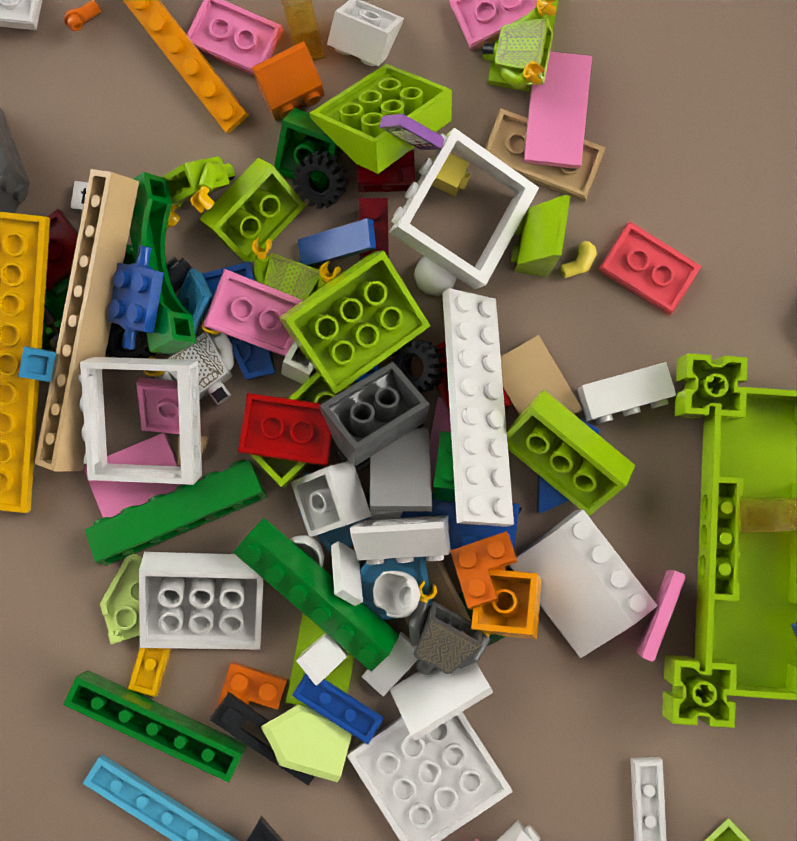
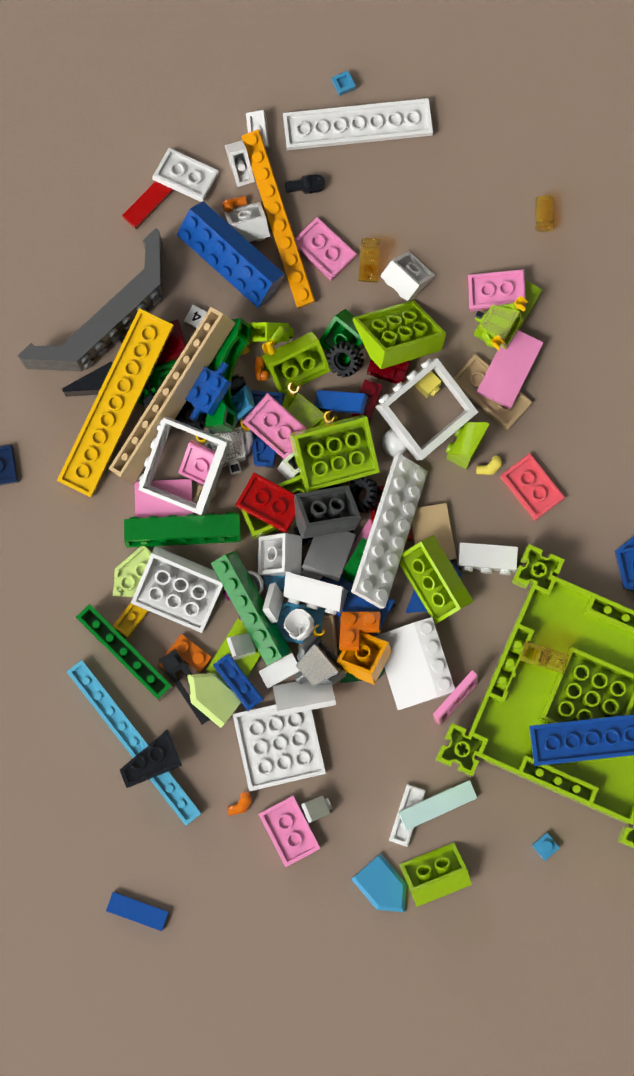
camera: 20 degrees right, 5 degrees down
(37, 364) = (134, 409): dark azure plate -> none
(98, 85) = (230, 254): none -> blue brick
(111, 38) = (249, 222): none -> white slope
(206, 243) = (259, 370): none -> orange arm
(289, 81) = (348, 292): orange slope -> none
(411, 132) = (409, 352): medium lavender tile -> none
(687, 777) = (437, 805): none -> light aqua tile

